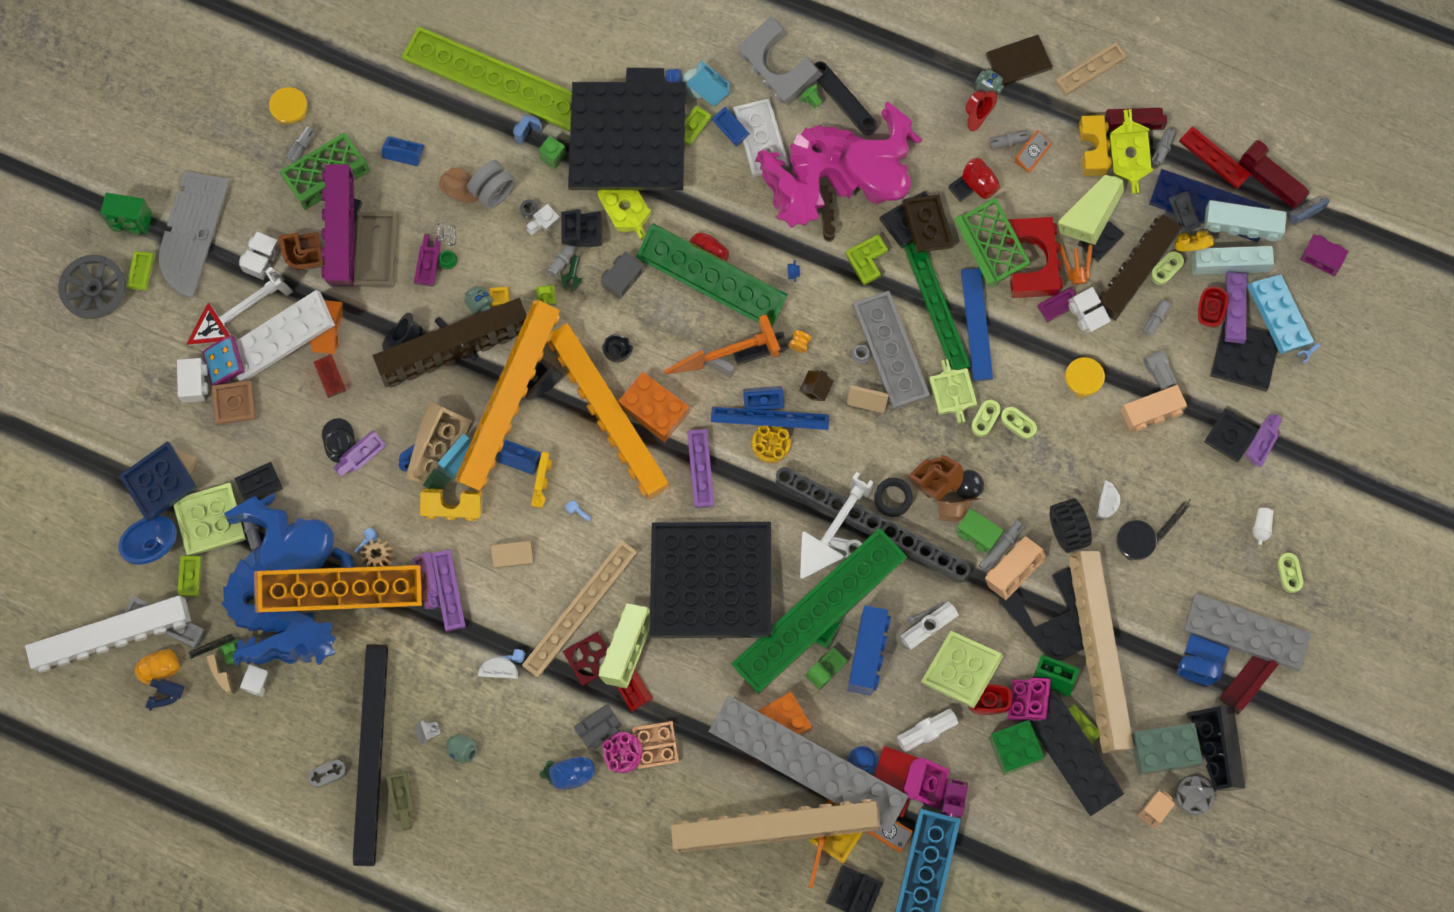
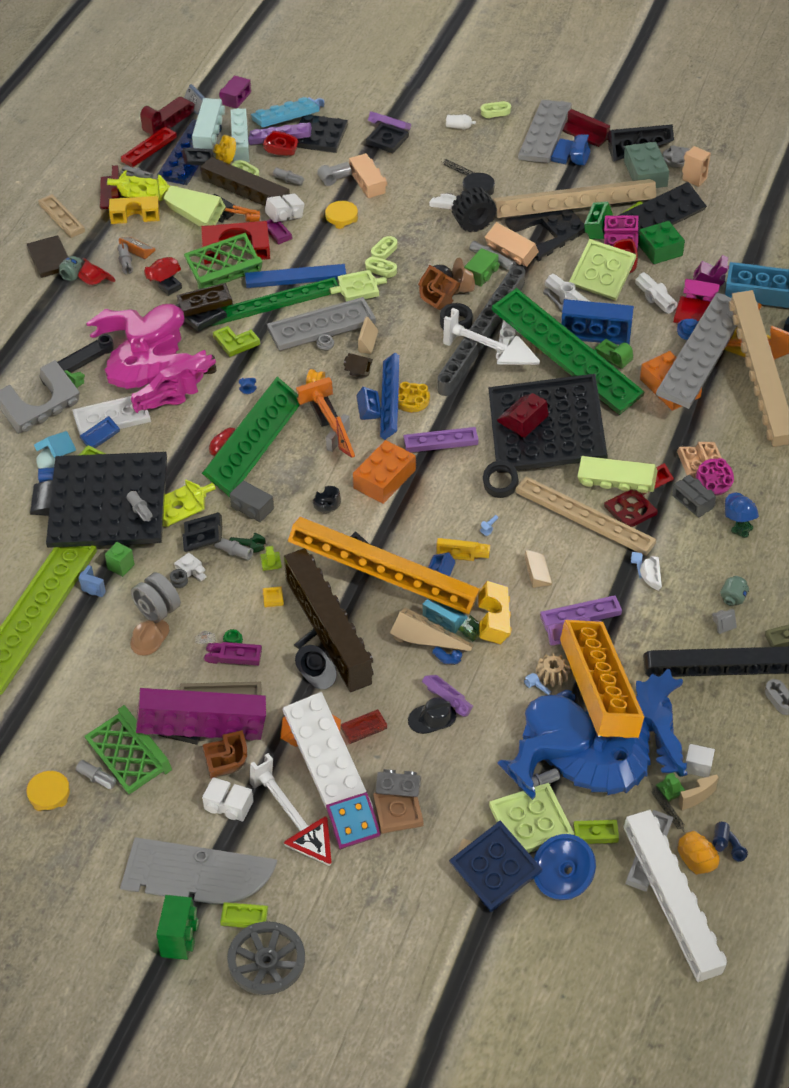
camera: 90 degrees left, 25 degrees down
(191, 380) = (375, 850): white brick -> none
(258, 402) = (398, 784): none -> flat silver bracket
(259, 482) = (486, 779): black plate -> none
(402, 151) = (108, 686): blue slope -> none
(478, 299) = (279, 606): sand green head -> none
(600, 162) = (139, 506): none -> light grey axle
(608, 411) = (402, 497): light orange brick -> none
(640, 536) = (497, 466): none -> black tyre
(715, 551) = (525, 414): none -> dark red slope

